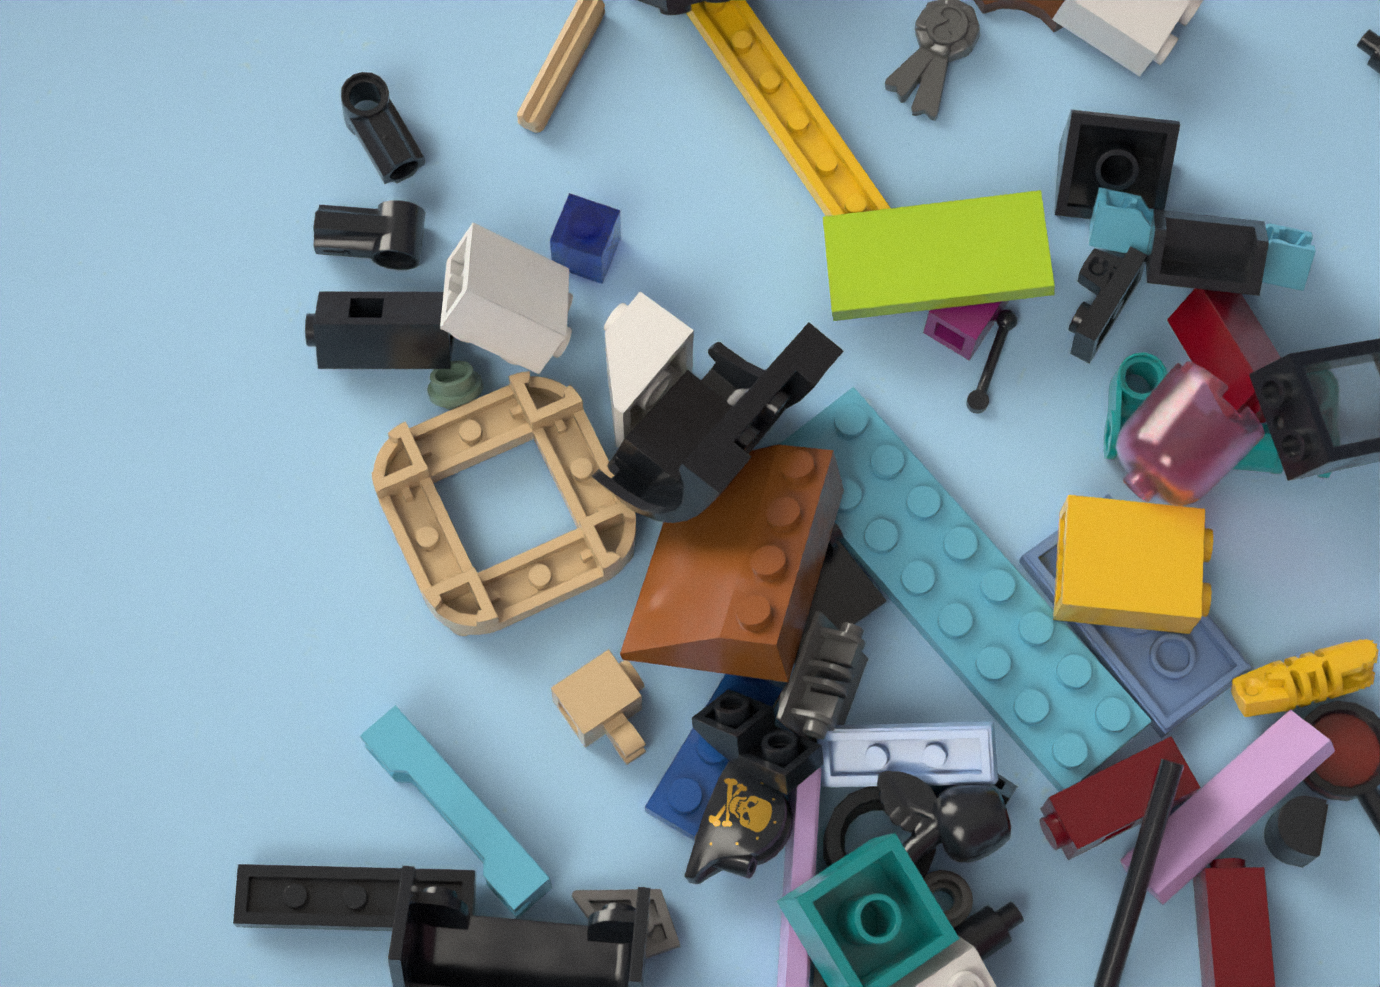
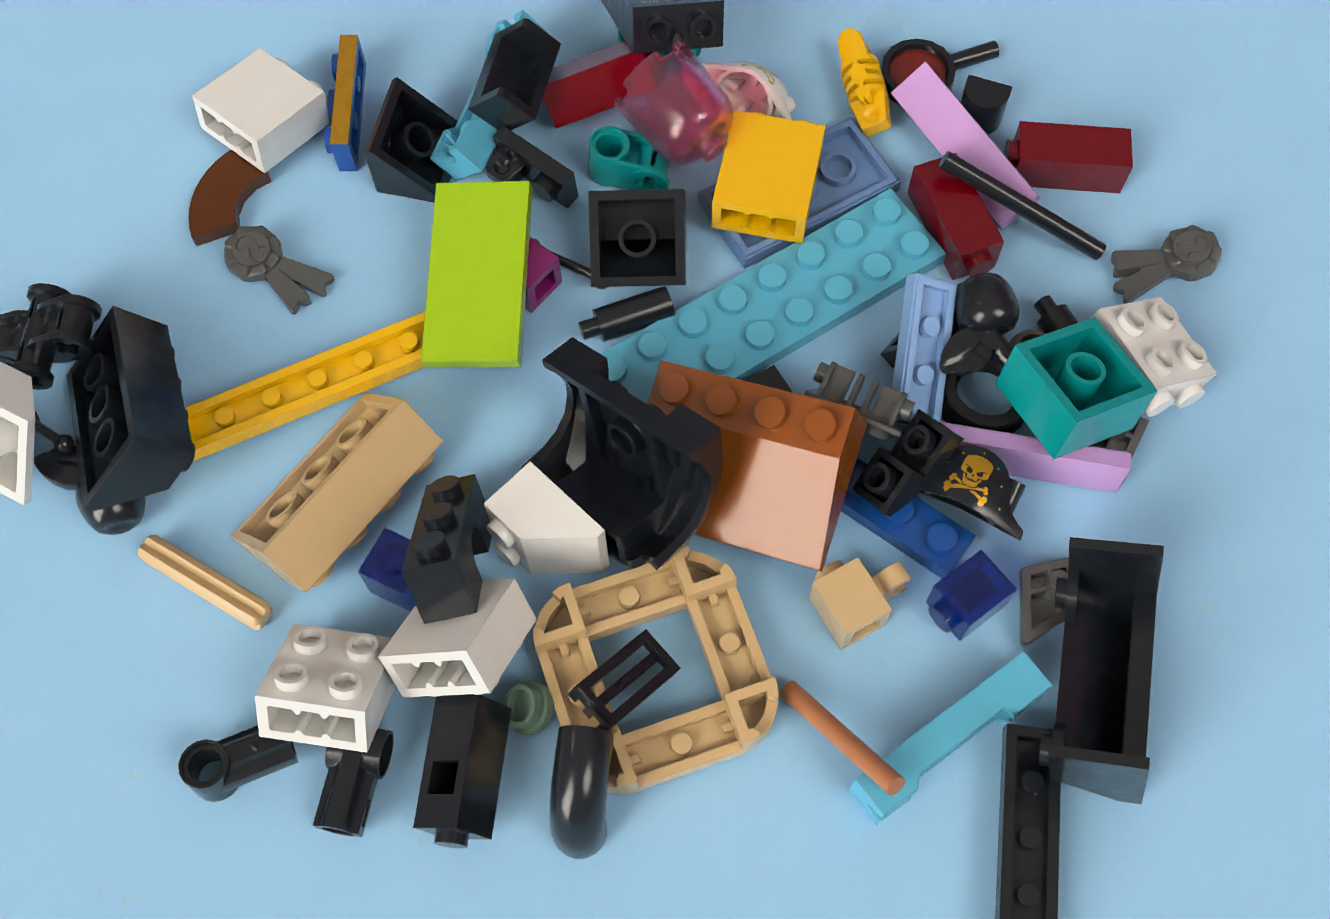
camera: 80 degrees left, 5 degrees down
(361, 431) = (580, 789): none -> black cylinder
(440, 692) = (843, 738): none -> nougat bar
(446, 183) = (325, 689): none -> white brick
(450, 441) = (596, 705): none -> black tile
(568, 259) = (443, 546): none -> black arch
(617, 827) = (969, 596): none -> clear blue brick
(671, 165) = (338, 490): none -> tan slope
(927, 433) = (628, 315): none -> black cylinder
(1027, 428) = (637, 237): none -> black slope
(1165, 86) = (346, 103): none -> plate
(1258, 537) = (752, 88): none -> hat

